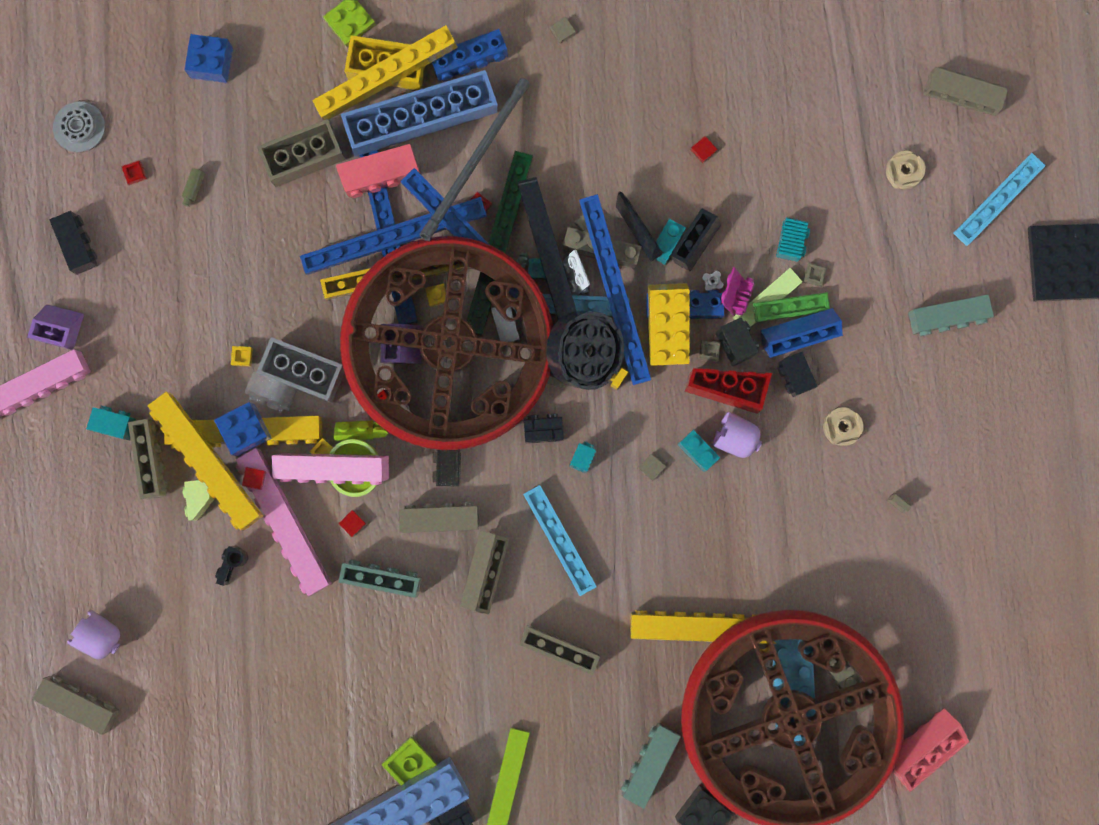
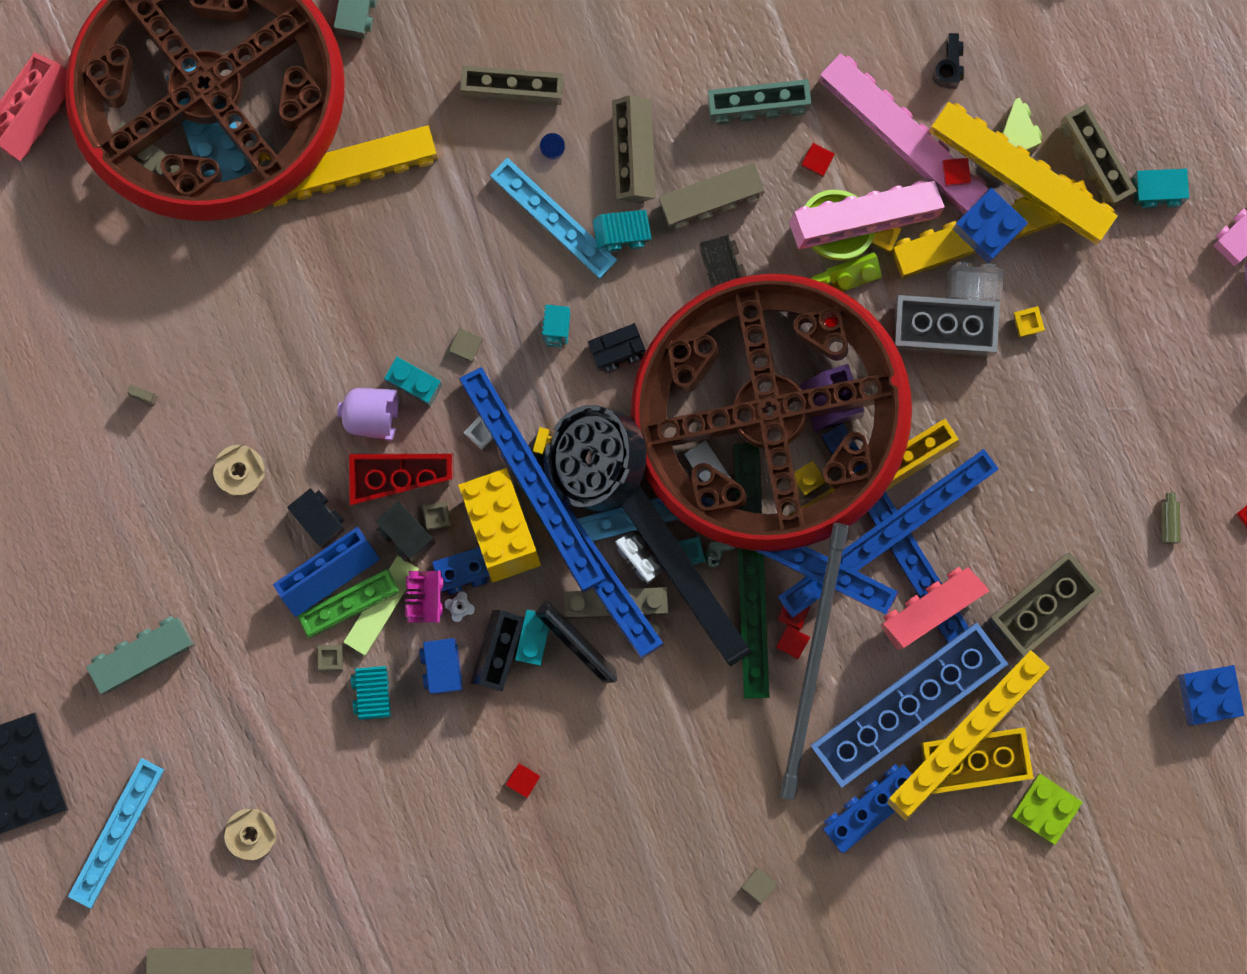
camera: 160 degrees right, 0 degrees up
(485, 185) = (793, 642): none -> red tile
(512, 514) = (621, 230): none -> teal brick
(543, 595) = (552, 146): none -> clear blue tile
(635, 350) = (532, 480): none -> blue plate
(659, 400) = (478, 434): none -> white tile
(738, 239) = (442, 666): none -> blue brick

